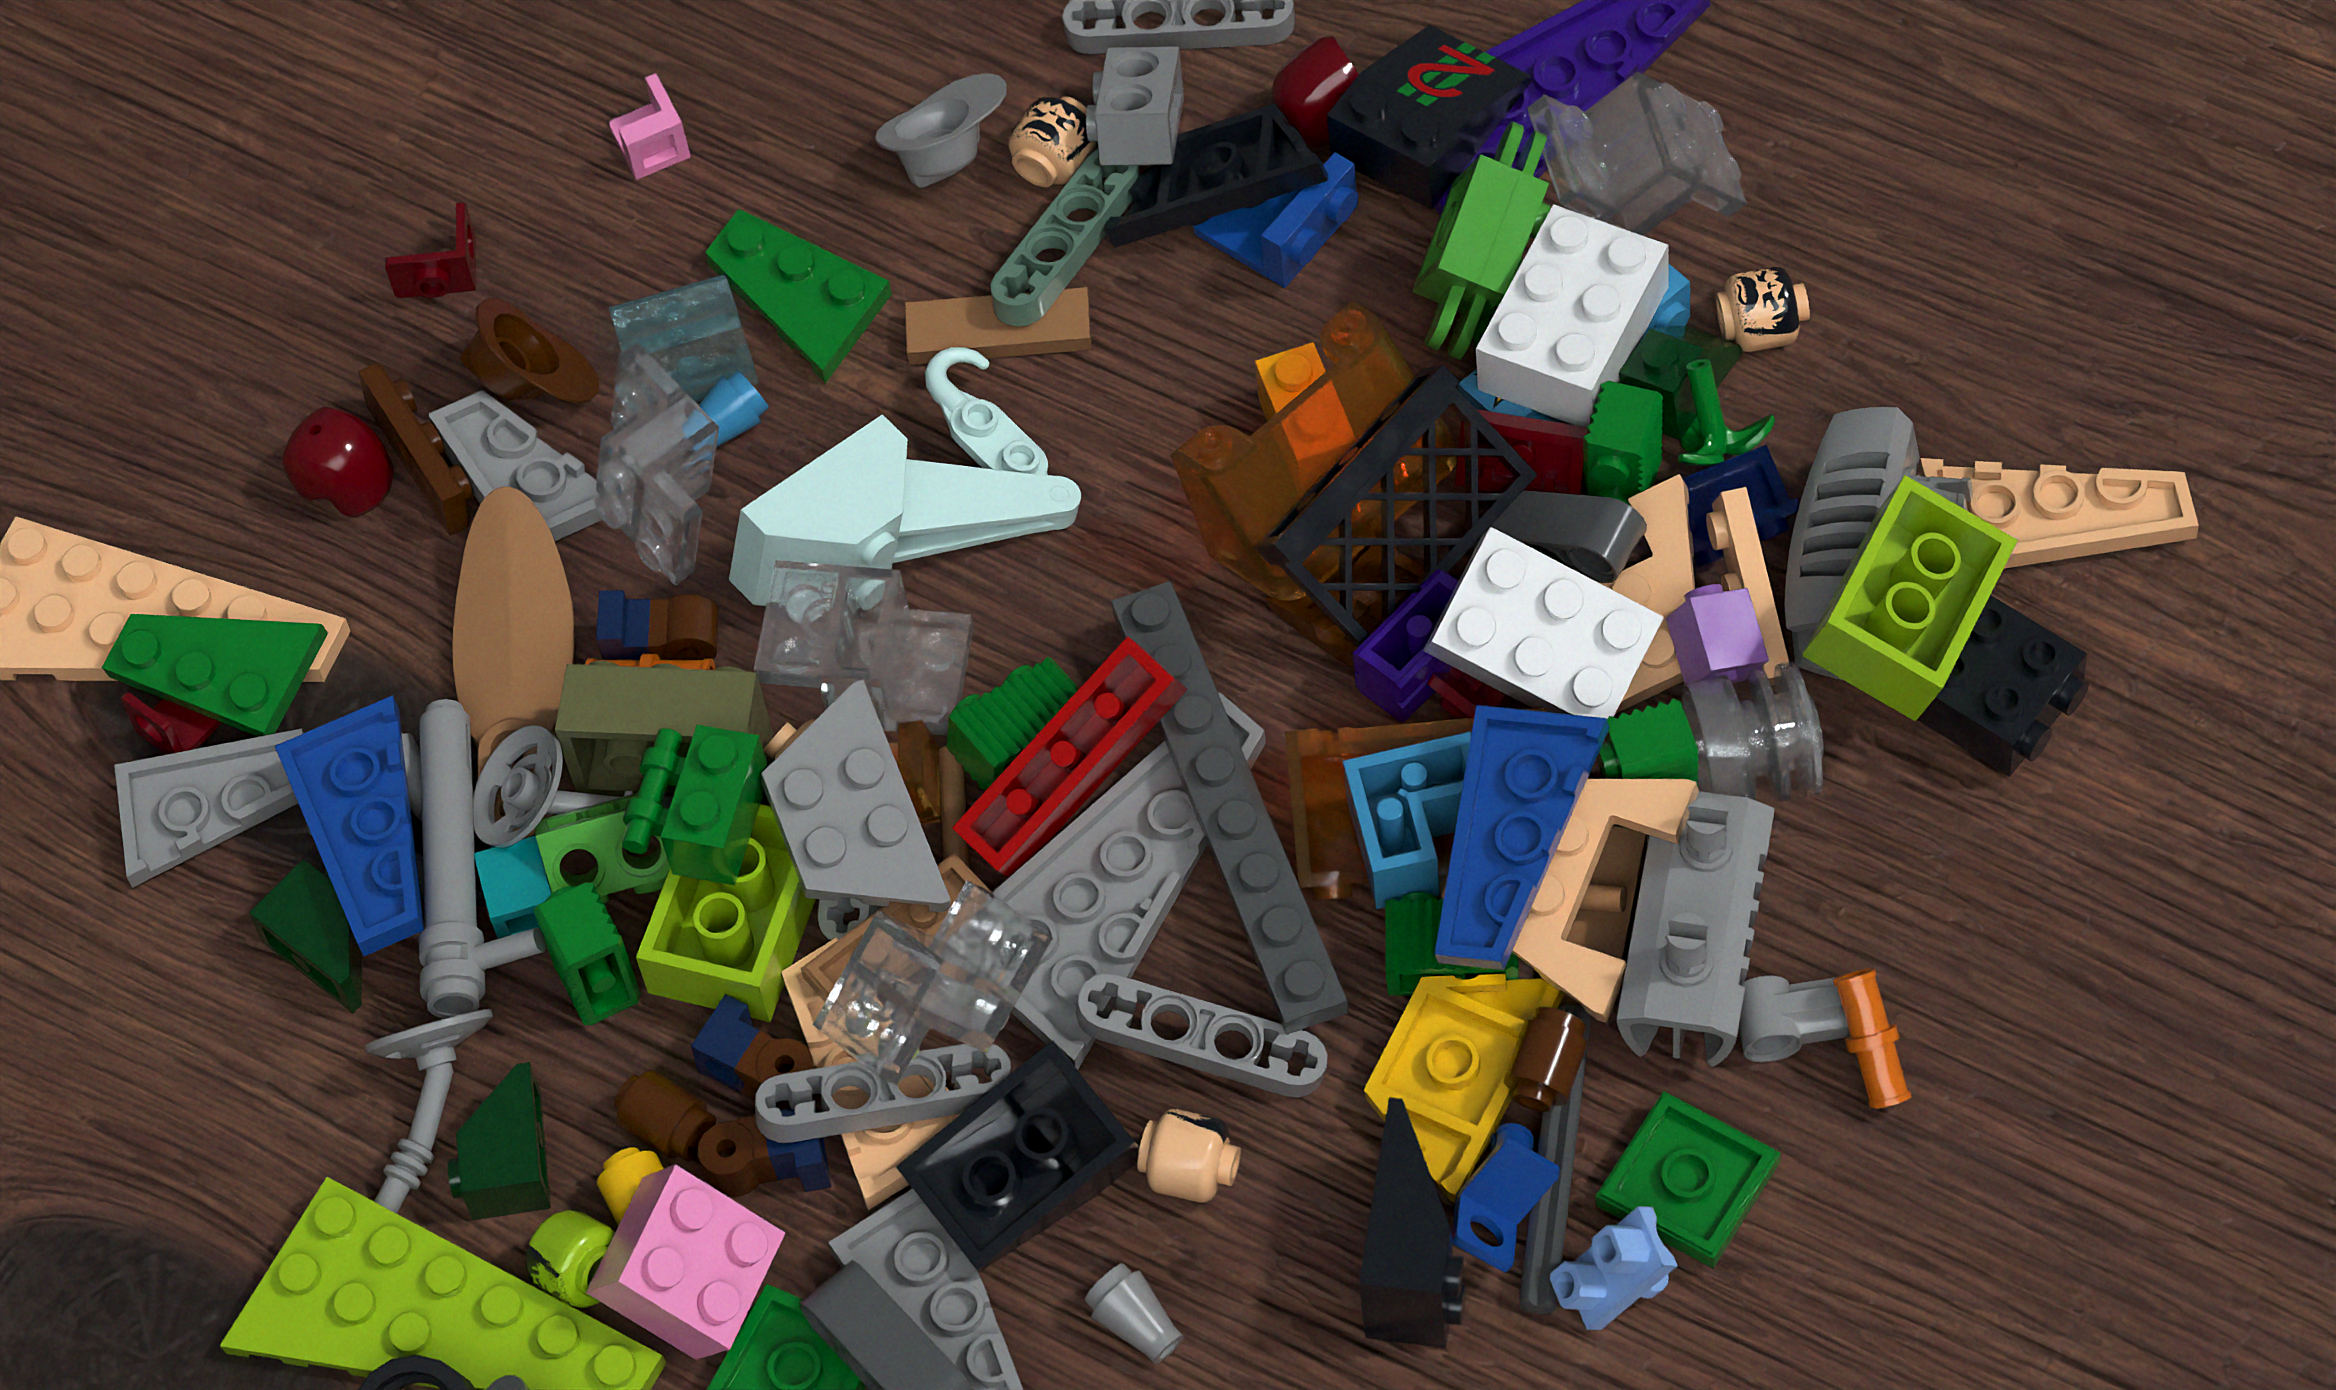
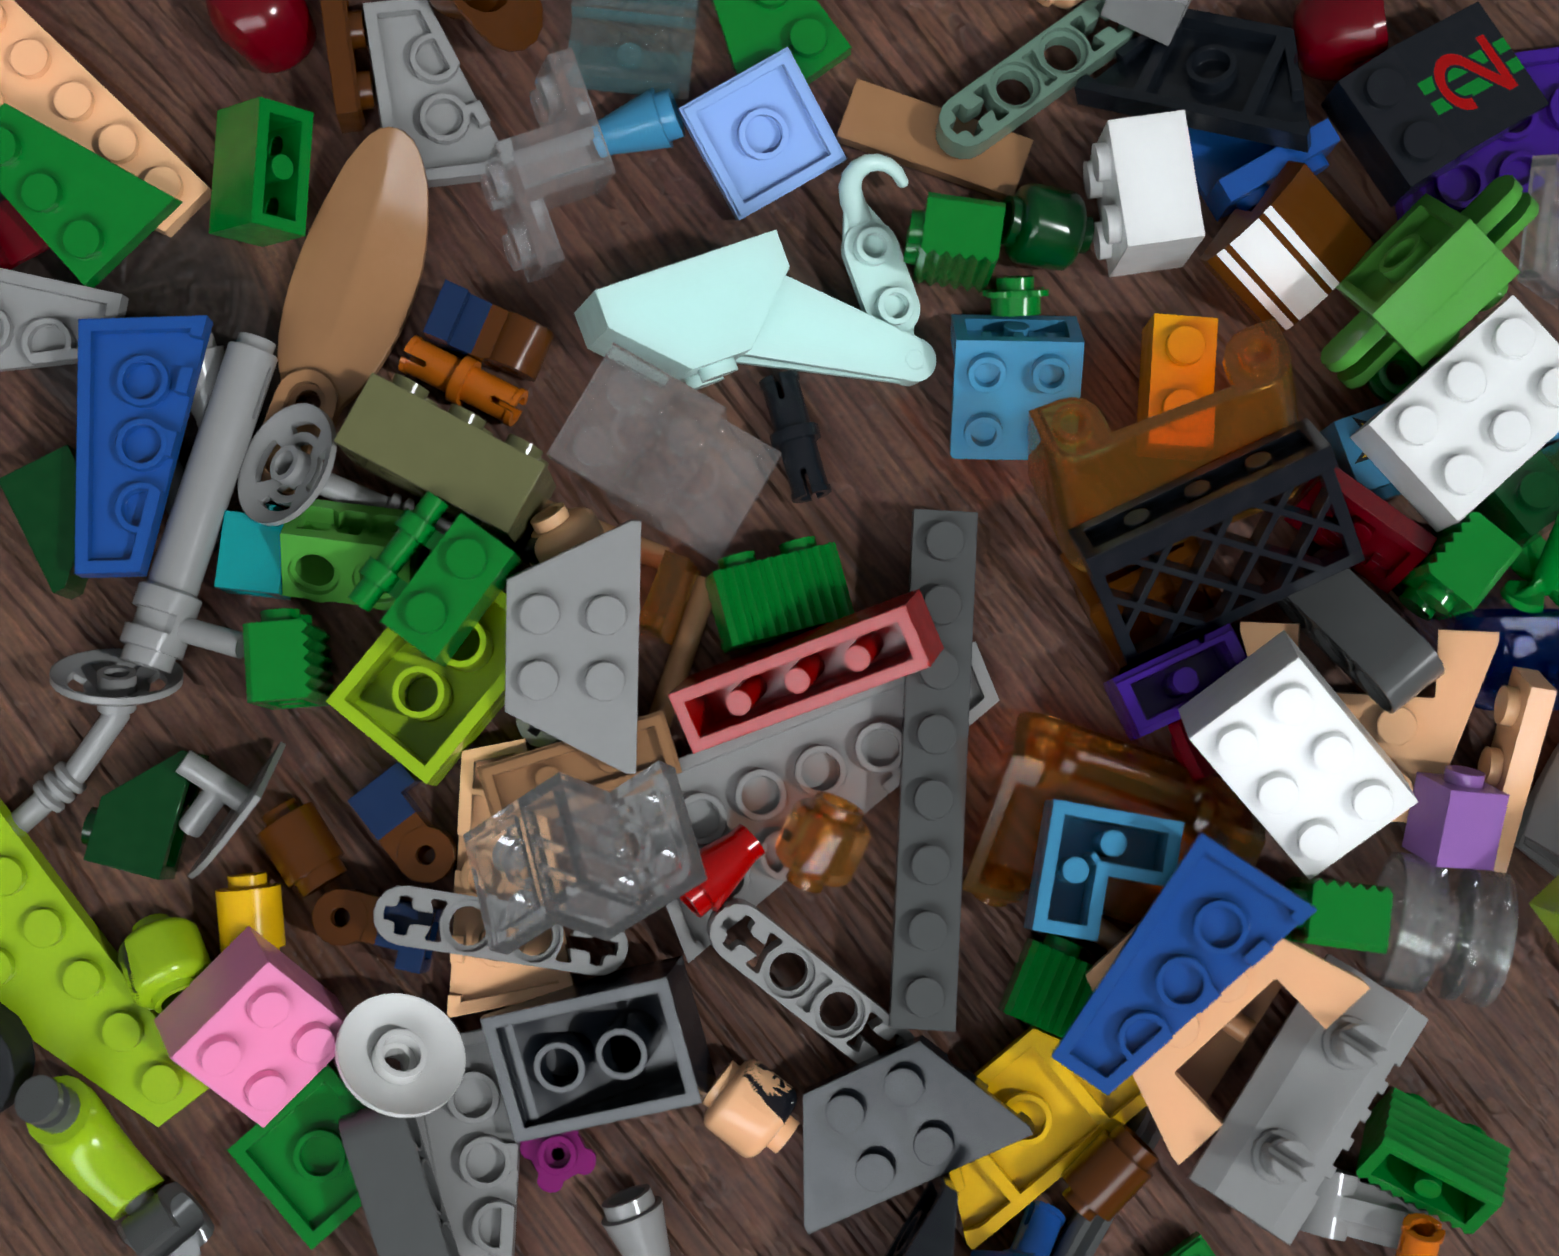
camera: 10 degrees right, 25 degrees up
(391, 579) = (261, 172): none -> green brick
(564, 1082) = (216, 791): none -> light grey shield
(833, 1226) = (414, 1035): none -> white dish
(837, 374) = (761, 133): none -> light blue tile
(980, 599) = (795, 436): none -> black pin
(1029, 1297) = (552, 1171): none -> magenta plate
(1050, 381) = (955, 241): none -> green brick
(1064, 962) = (725, 866): none -> red cone
(1128, 347) = (1046, 227): none -> dark green head
(1128, 412) = (1015, 296): none -> green plate
(1144, 487) = (1004, 373): none -> dark azure bracket
(1150, 894) = (822, 842): none -> clear orange head
(1203, 279) = (1144, 194): none -> white brick
(1325, 1111) = (895, 1128): none -> wing
(1349, 258) = (1286, 249): none -> reddish brown slope
(1844, 933) = (1433, 1160): none -> green brick

